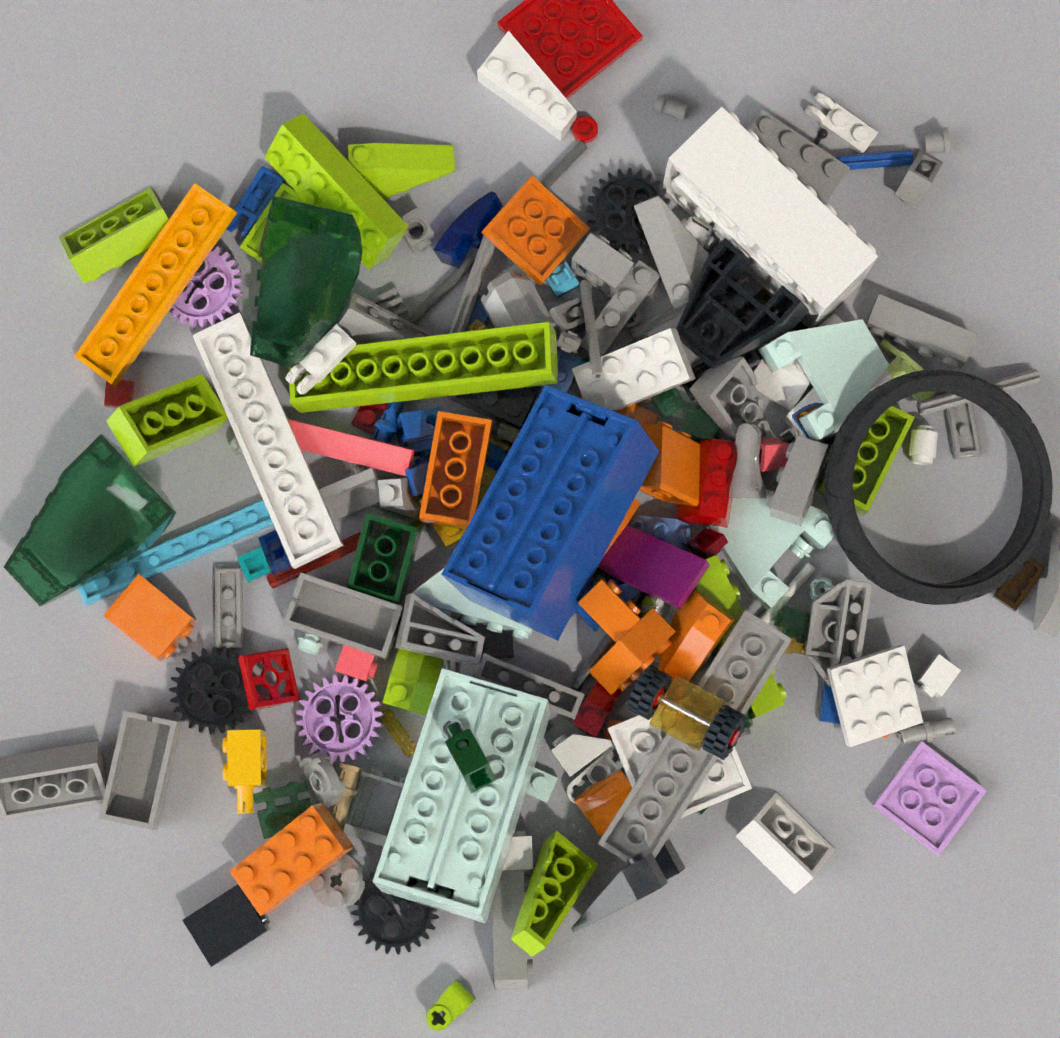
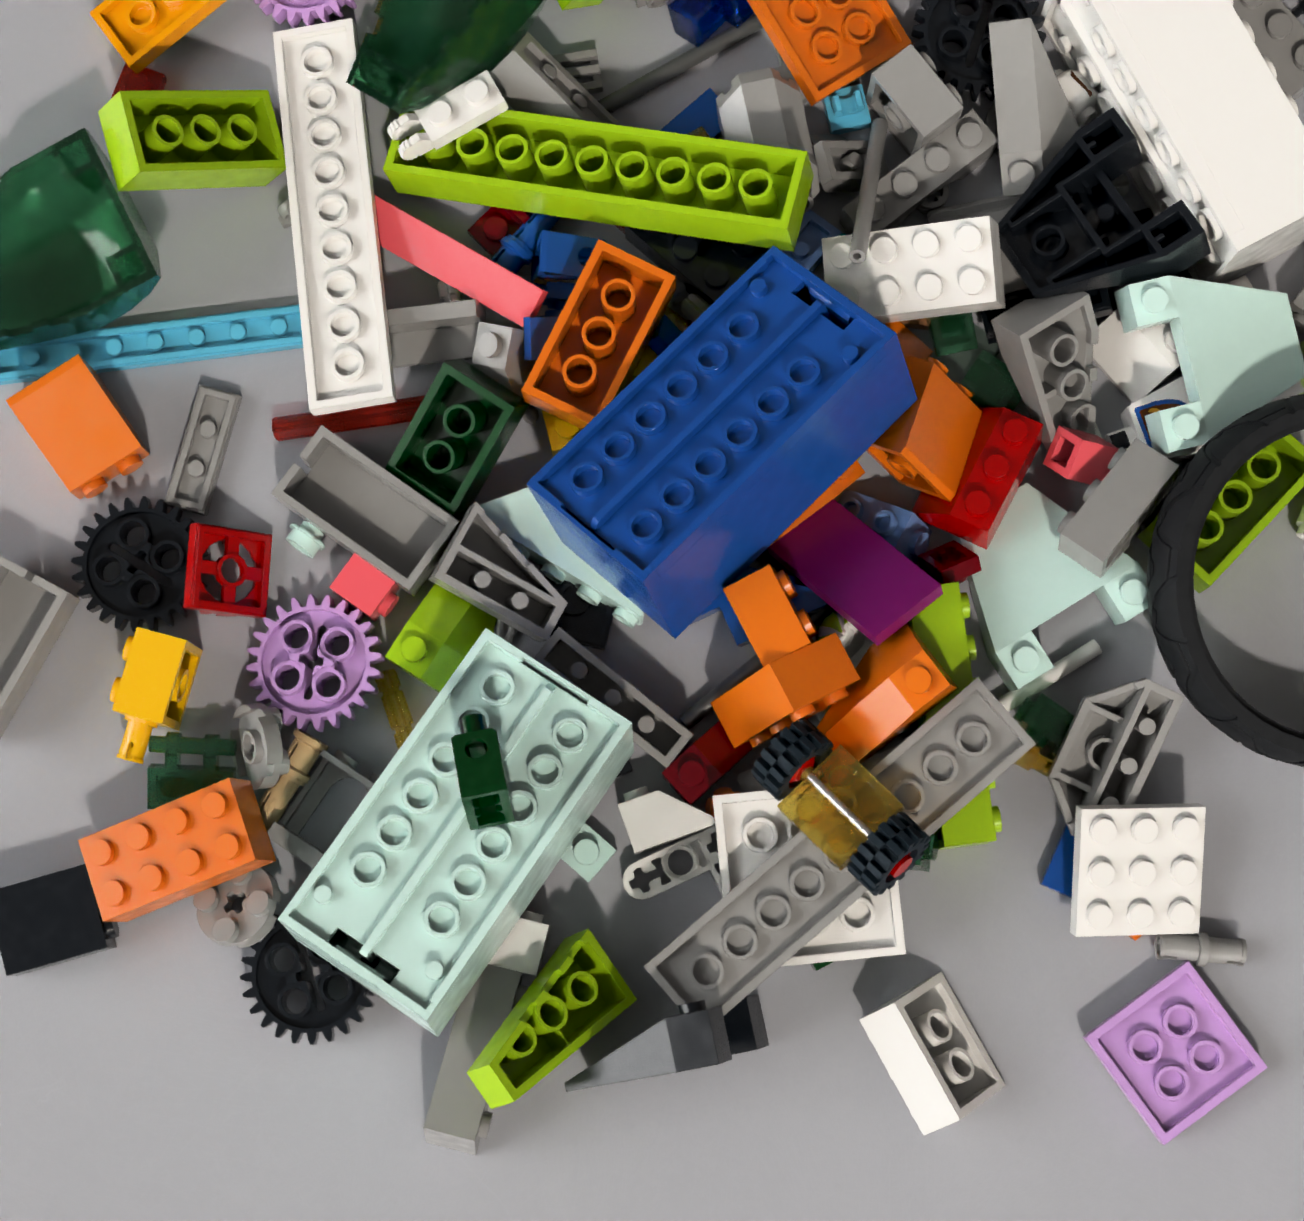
camera: 20 degrees right, 0 degrees up
(254, 565) = (260, 396): teal plate -> none
(274, 552) = (292, 387): clear blue slope -> none
(452, 1002) = (353, 1142): lime piece -> none
(473, 286) = (714, 74): light grey axle -> none
(569, 342) = (829, 200): light grey bar -> none
(604, 800) = (674, 904): orange slope -> none
(747, 475) = (1039, 479): light grey piece -> none
(801, 547) = (1090, 613): light aqua plate -> none
(817, 584) = (1097, 676): light aqua plate -> none
(937, 677) = (1242, 870): white brick -> none

